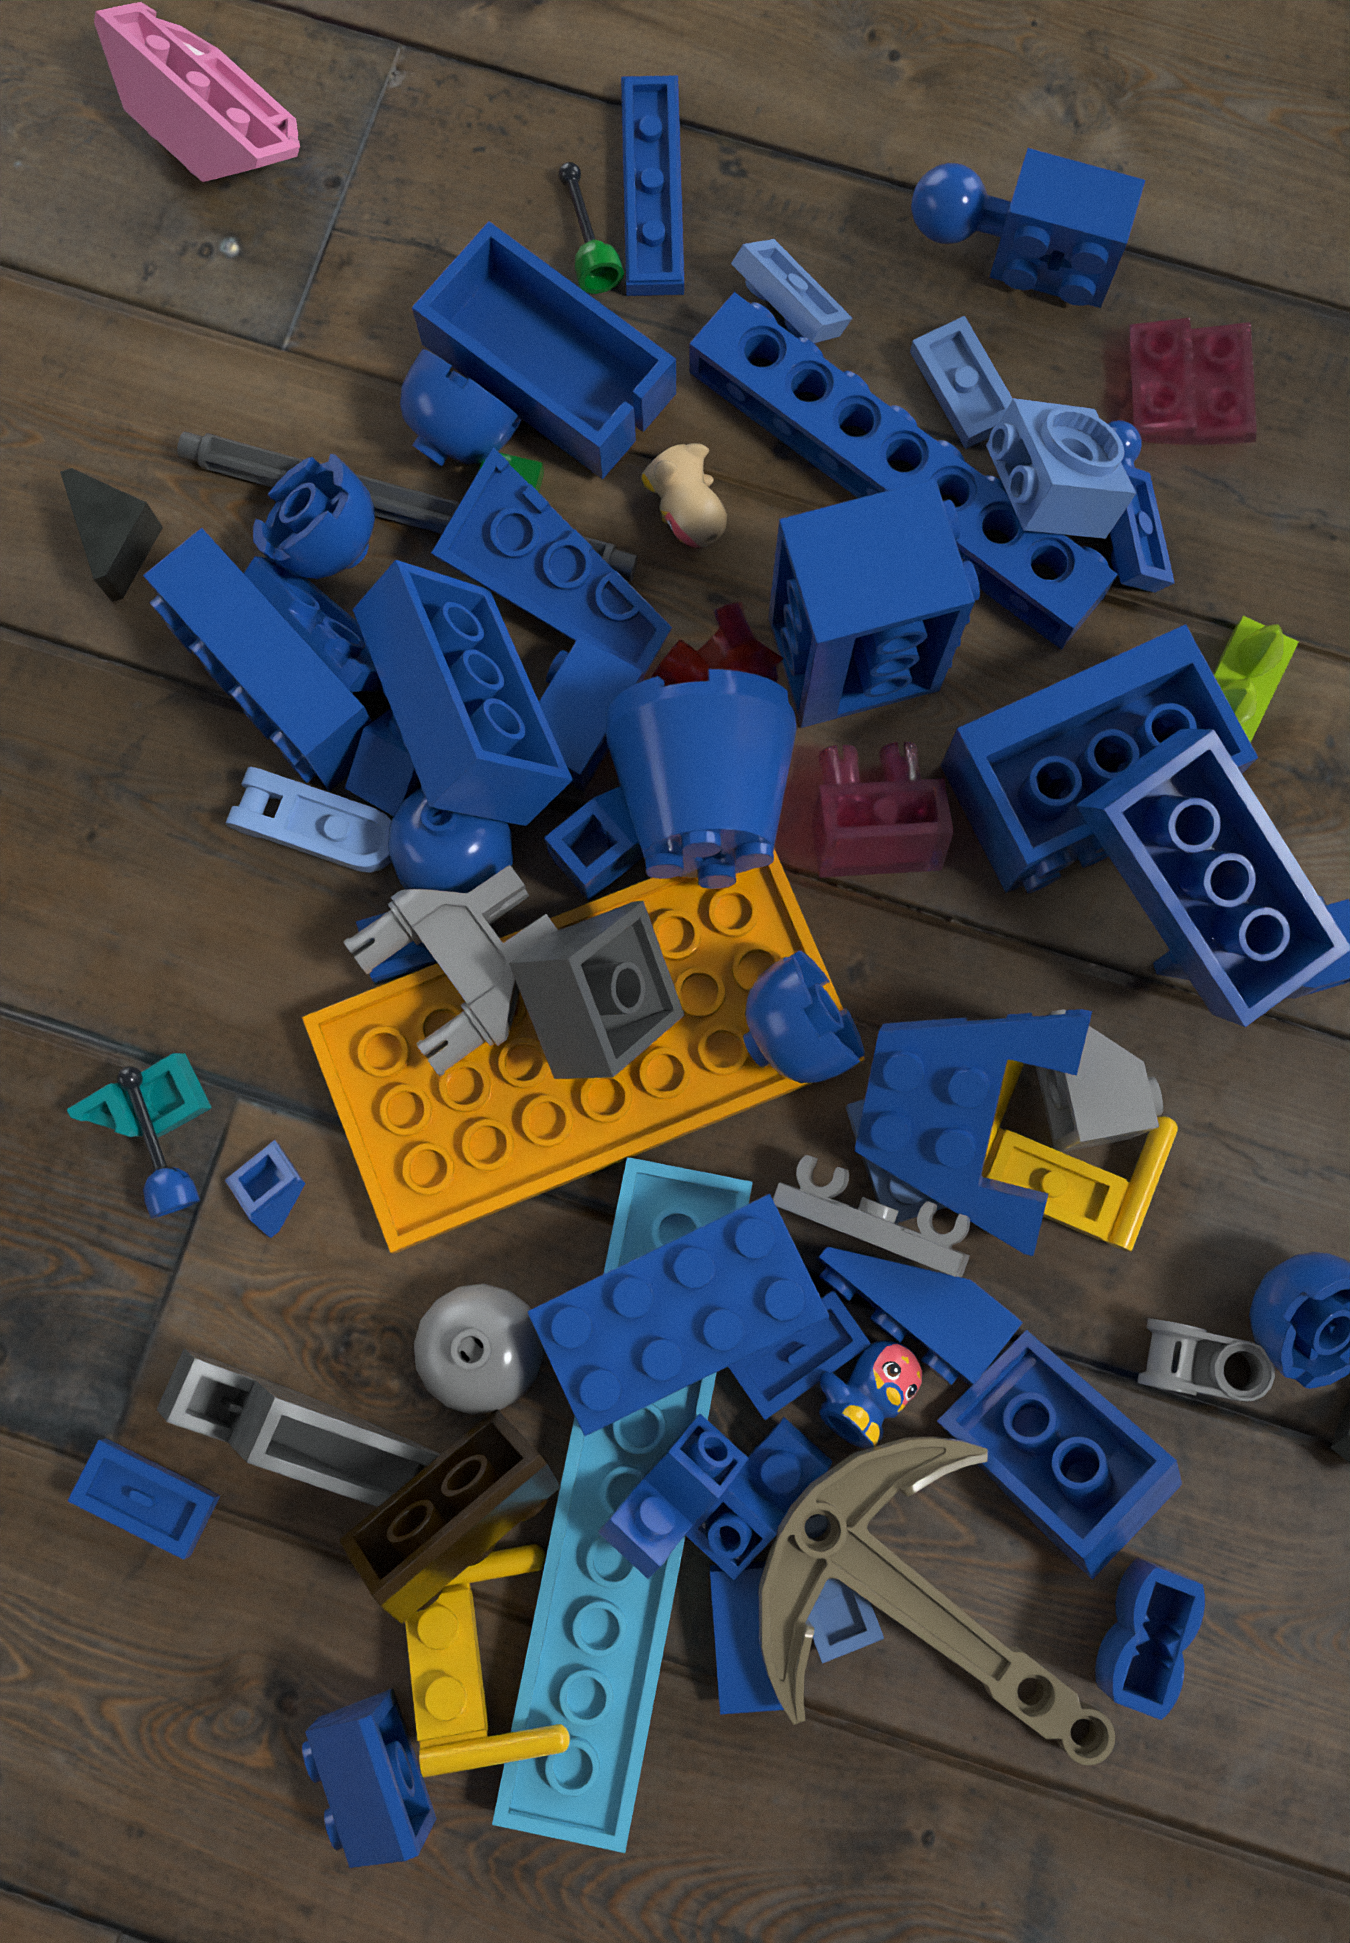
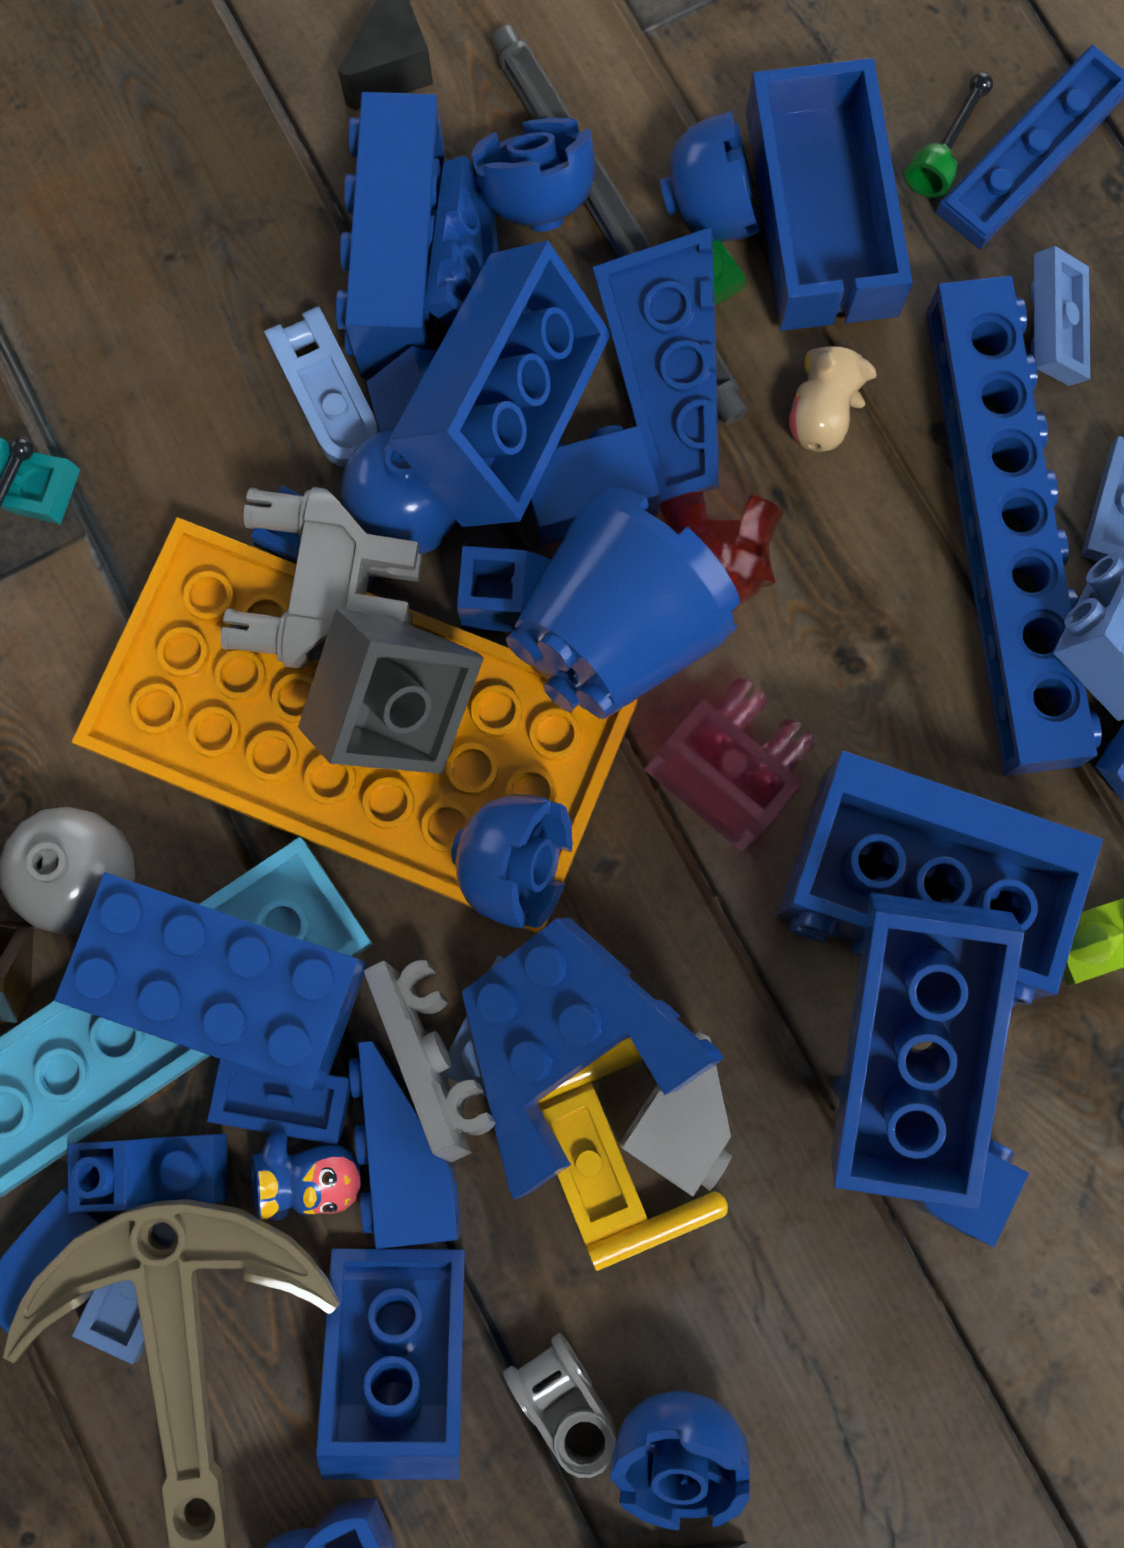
camera: 45 degrees right, 0 degrees up
(267, 1188) = (38, 616): blue slope -> none
(673, 1496) = (84, 1108): blue slope -> none
(869, 601) = (870, 590): blue brick -> none

